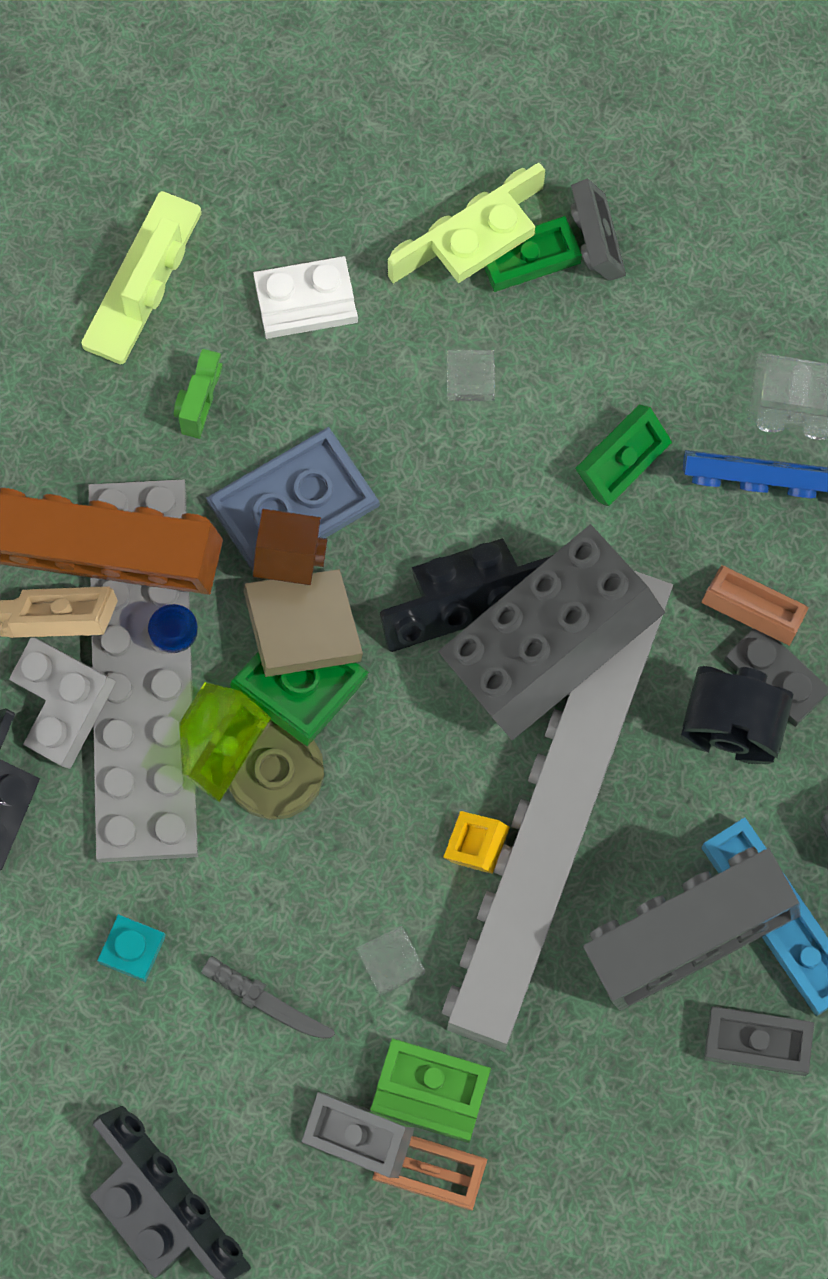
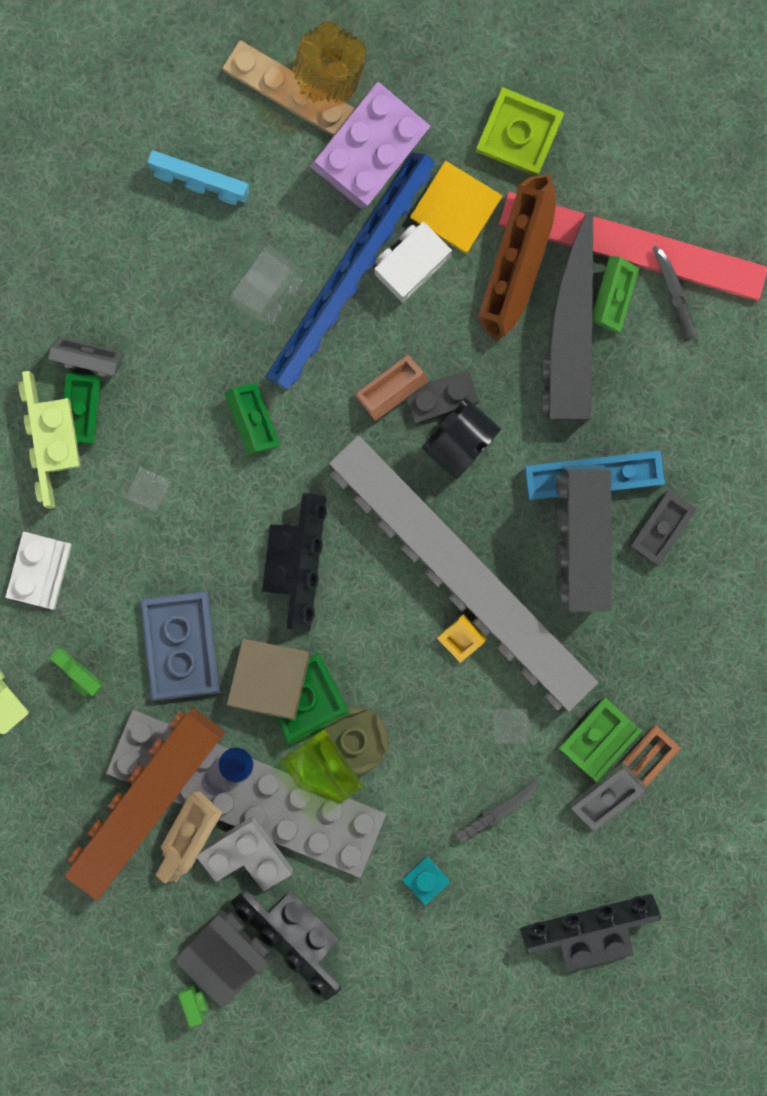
camera: 65 degrees left, 15 degrees up
(288, 547) = (217, 666): reddish brown brick -> none
(552, 631) = (356, 529): dark grey brick -> none

